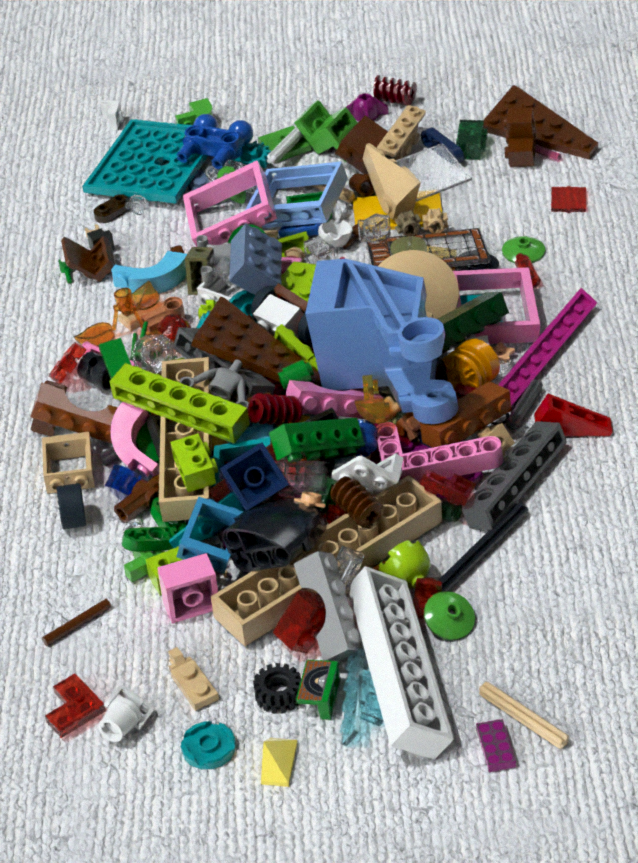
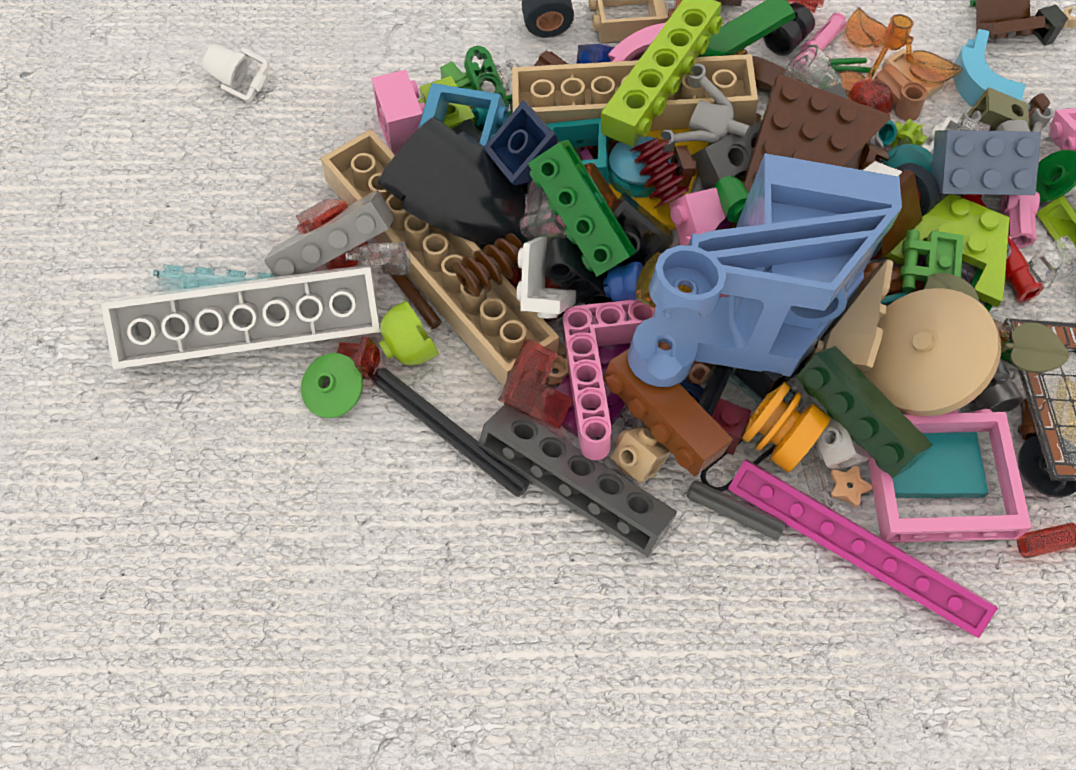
camera: 85 degrees right, 20 degrees up
(76, 622) = (387, 33): reddish brown bar -> none
(78, 708) = (263, 38): clear red plate -> none
(191, 680) = (283, 132): tan hinge -> none
(193, 462) = (565, 86): lime brick -> none
(208, 745) = (189, 149): teal tile -> none
(277, 699) = (248, 194): black tyre -> none
(278, 761) = (153, 208): light yellow slope -> none
(295, 252) = (1045, 232): tan plate -> none
(311, 499) = (511, 213): light nougat plate -> none
(320, 686) = (234, 244): panel -> none
(495, 745) = (120, 426): magenta tile -> none
(524, 715) = (158, 460): tan axle -> none
(573, 418) = (693, 571): red slope -> none

